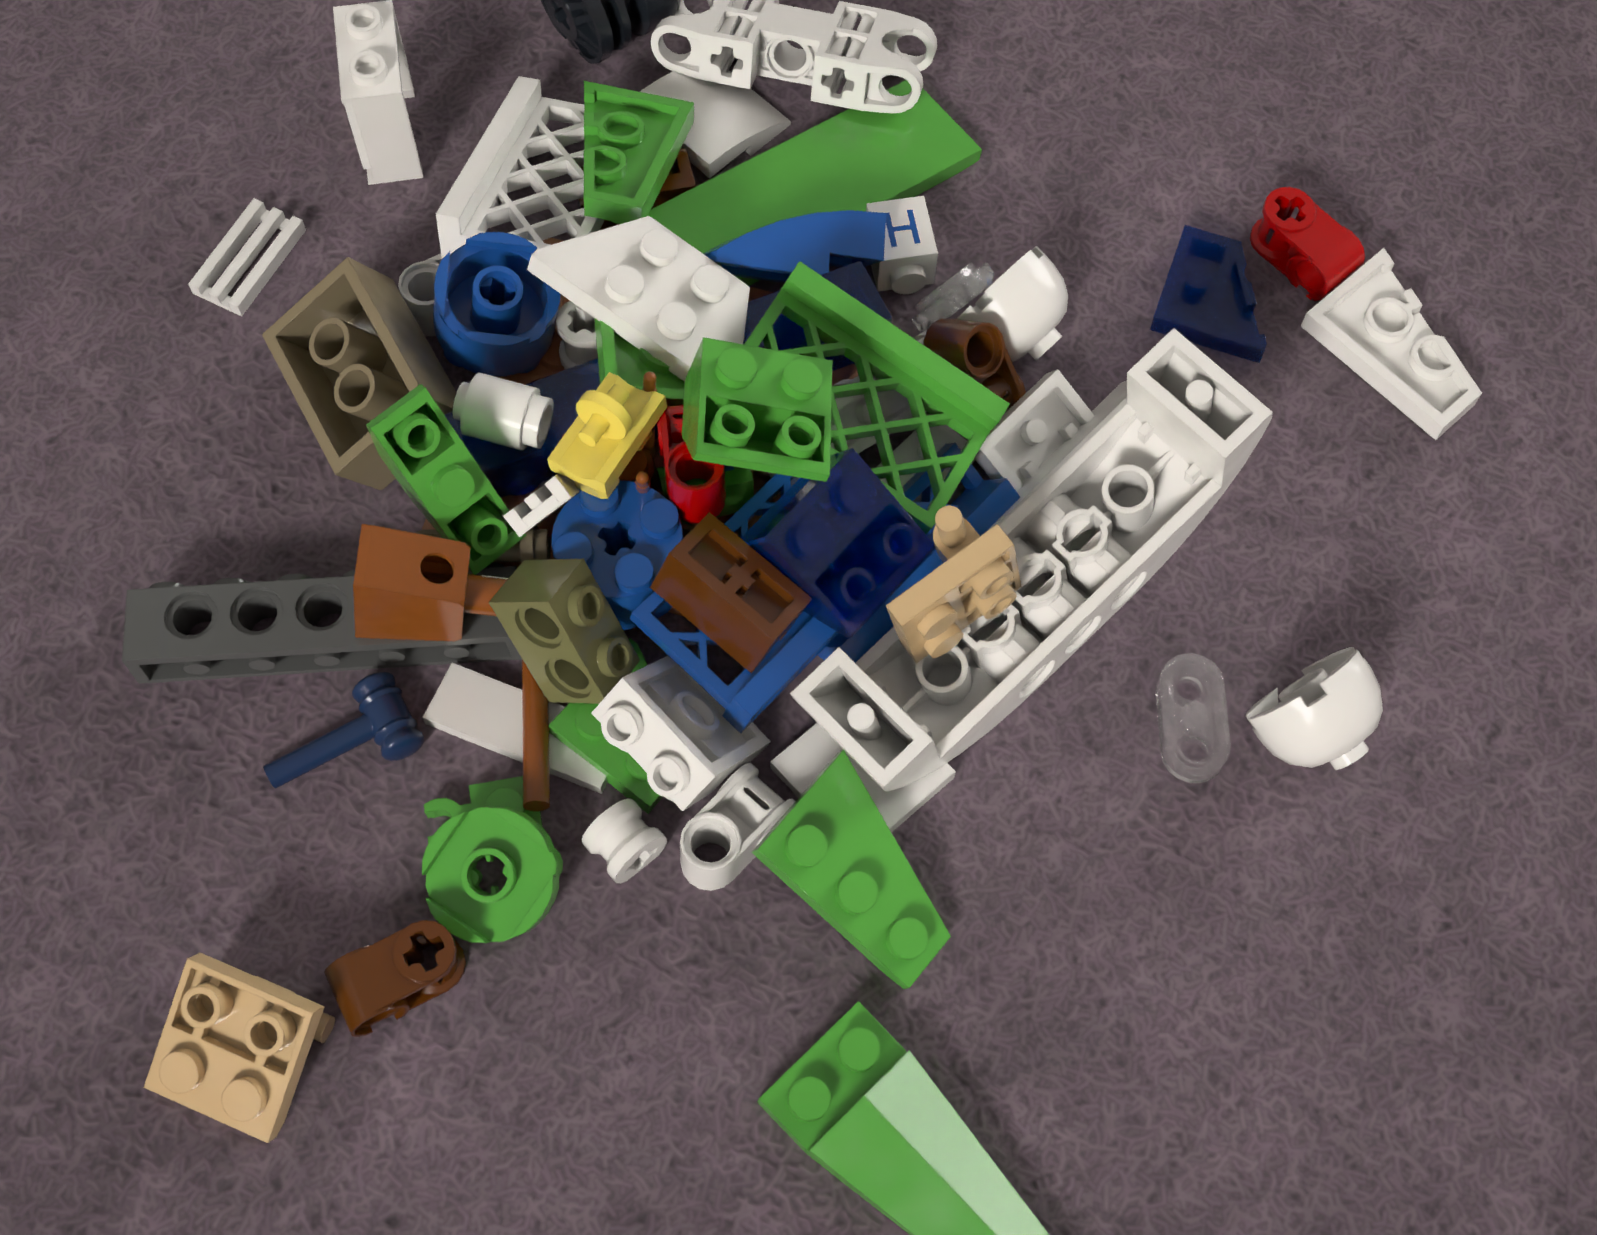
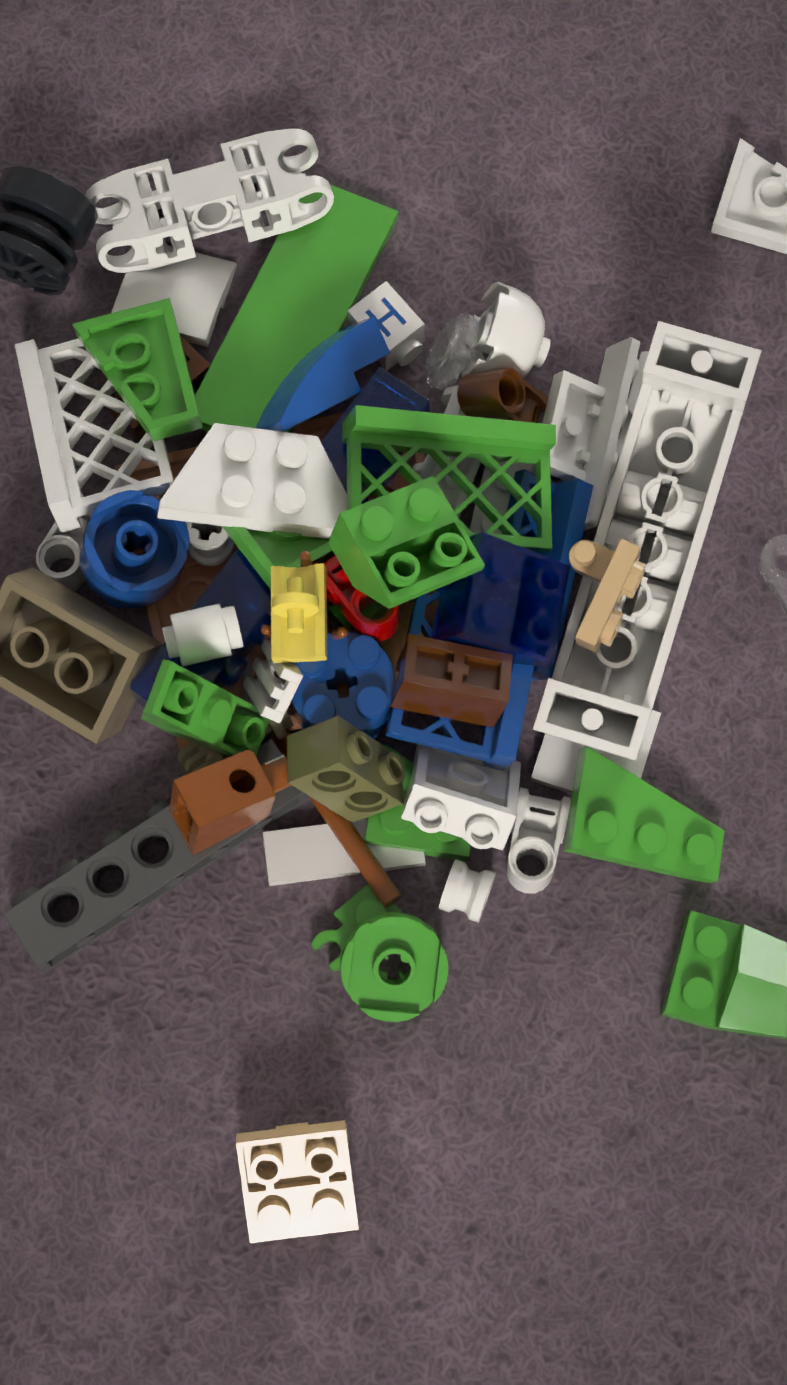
camera: 25 degrees left, 10 degrees up
(383, 718) = (240, 900): dark blue piece -> none
(390, 977) = (364, 1079): reddish brown piece -> none
(1210, 296) = (633, 245): clear blue wing -> none
(1306, 249) = (687, 164): red piece -> none

